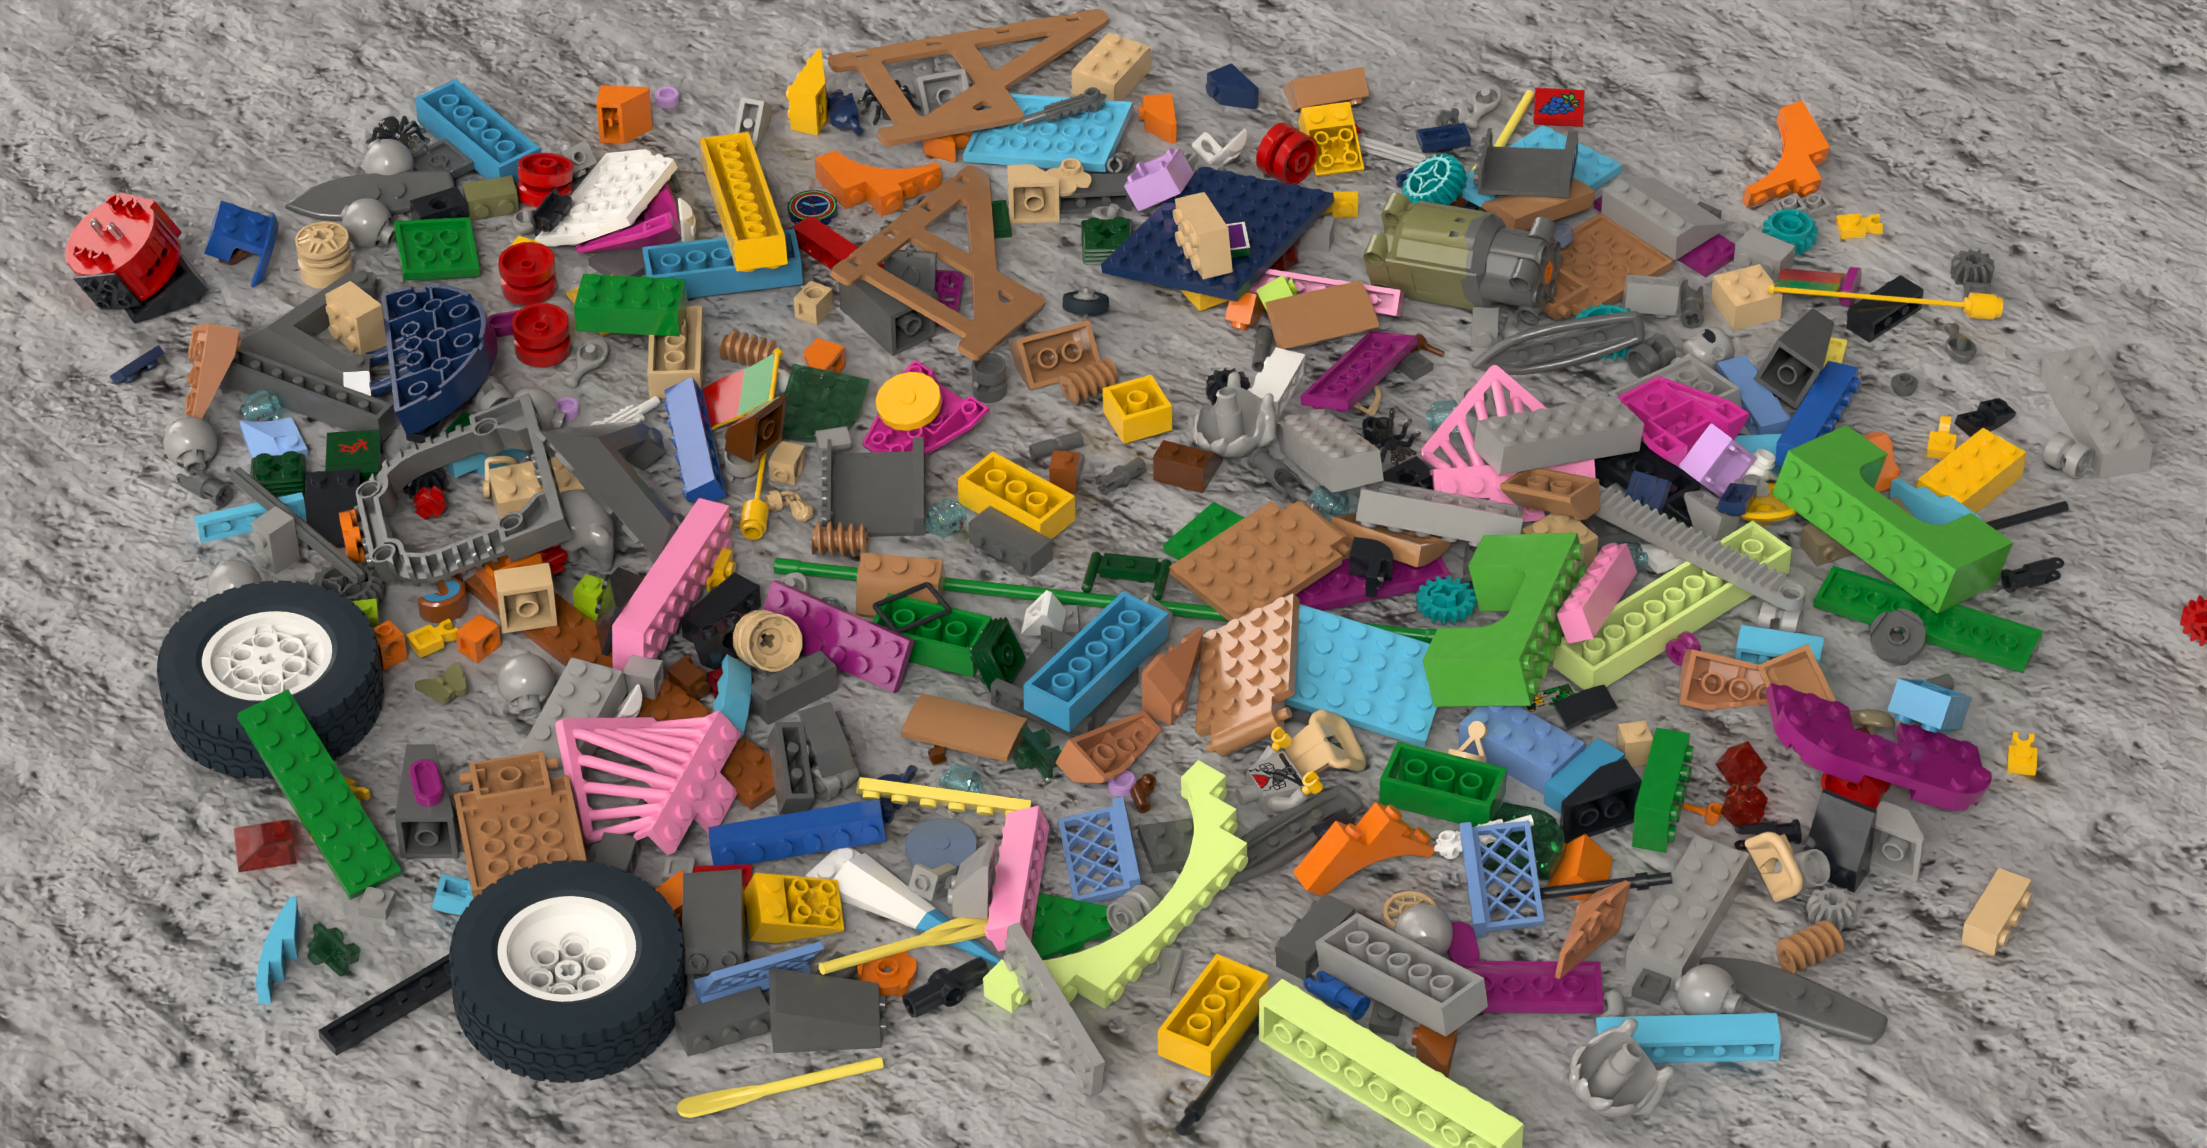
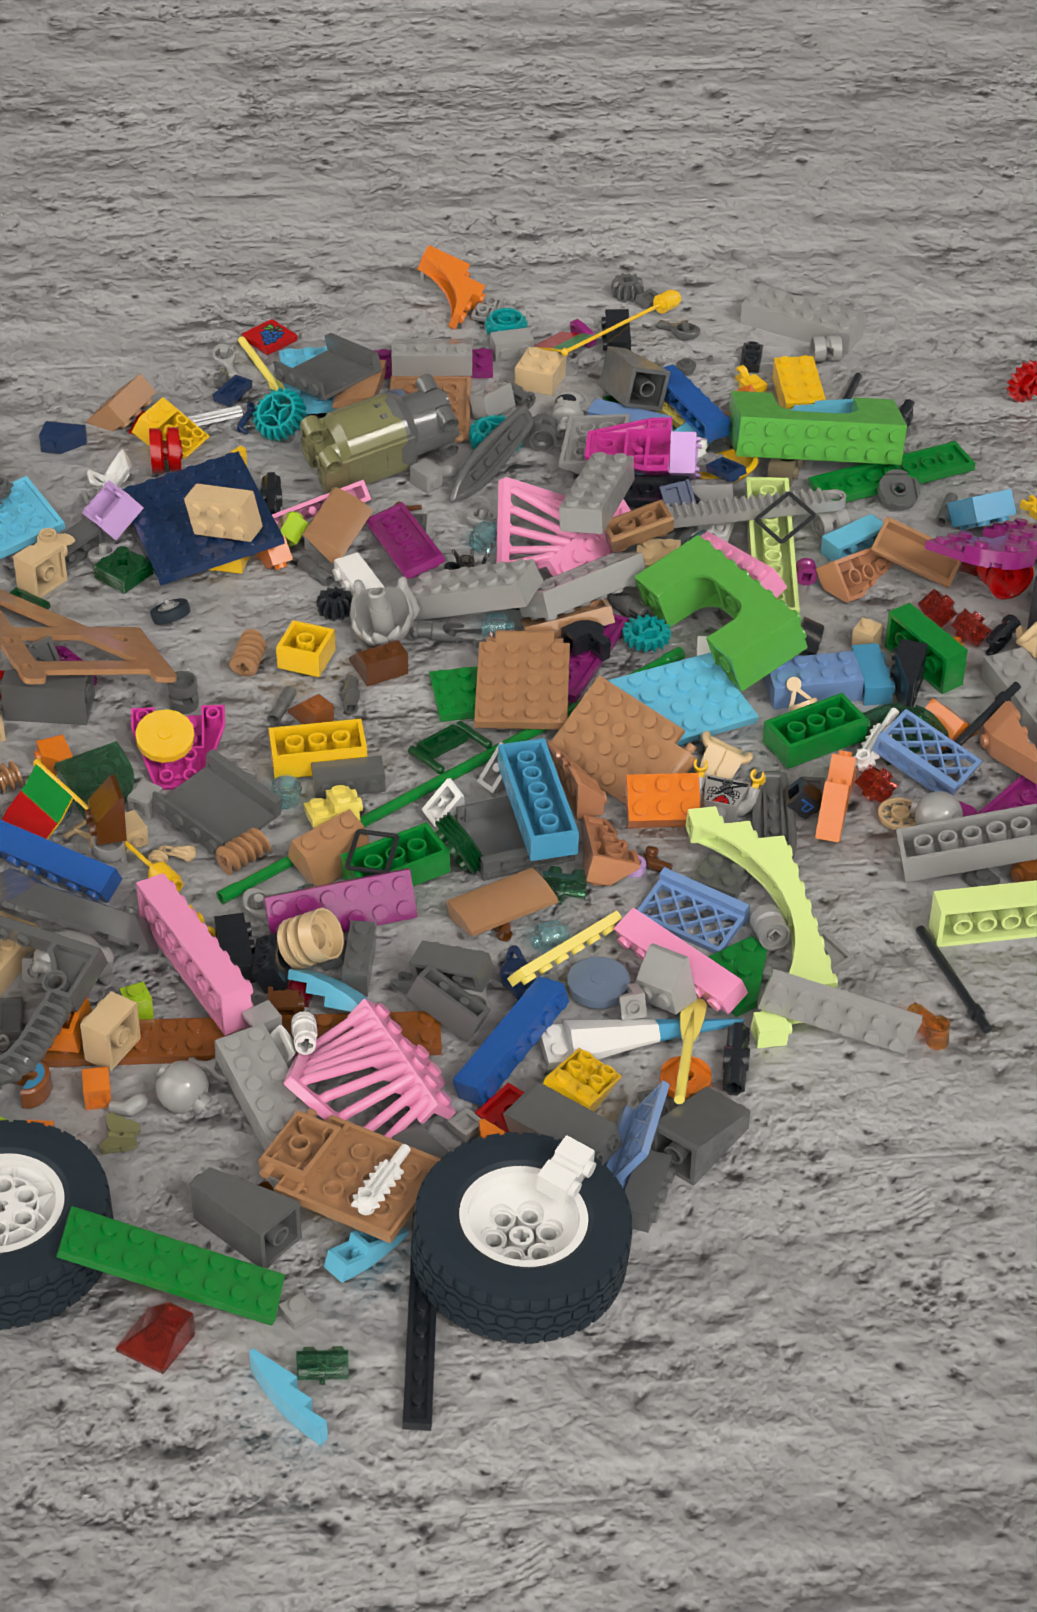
camera: 50 degrees left, 0 degrees up
(426, 782) = (248, 1194): magenta tile -> none
(430, 639) = (63, 1112): yellow plate -> none
(483, 671) = (129, 1107): none -> light grey arm
(489, 848) = (379, 1182): none -> white piece
(618, 591) = (183, 993): black slope -> none
(633, 938) = (566, 1170): none -> white brick
(656, 705) = (304, 1032): none -> white axle
(728, 1098) = (716, 1237): light yellow piece -> none
(960, 558) = (337, 801): none -> light yellow plate
(1054, 353) = (202, 650): medium nougat slope -> none
(1120, 162) = (68, 517): dark grey pin -> none
(1134, 1087) = (933, 1027): none -> clear orange piece
(1159, 116) = (45, 478): orange slope -> none
(1207, 736) = (660, 799): none -> orange brick
(1212, 1015) = (908, 949): yellow brick -> none
(1297, 950) = (880, 864): dark grey brick -> none
(1326, 257) = (272, 492): none -> black piece
(1338, 995) = (936, 883): blue piece -> none
(1419, 869) = (876, 783): none -> clear red brick
(1708, 559) = (770, 532): none -> black piece
(1856, 227) = (530, 304): yellow plate -> none

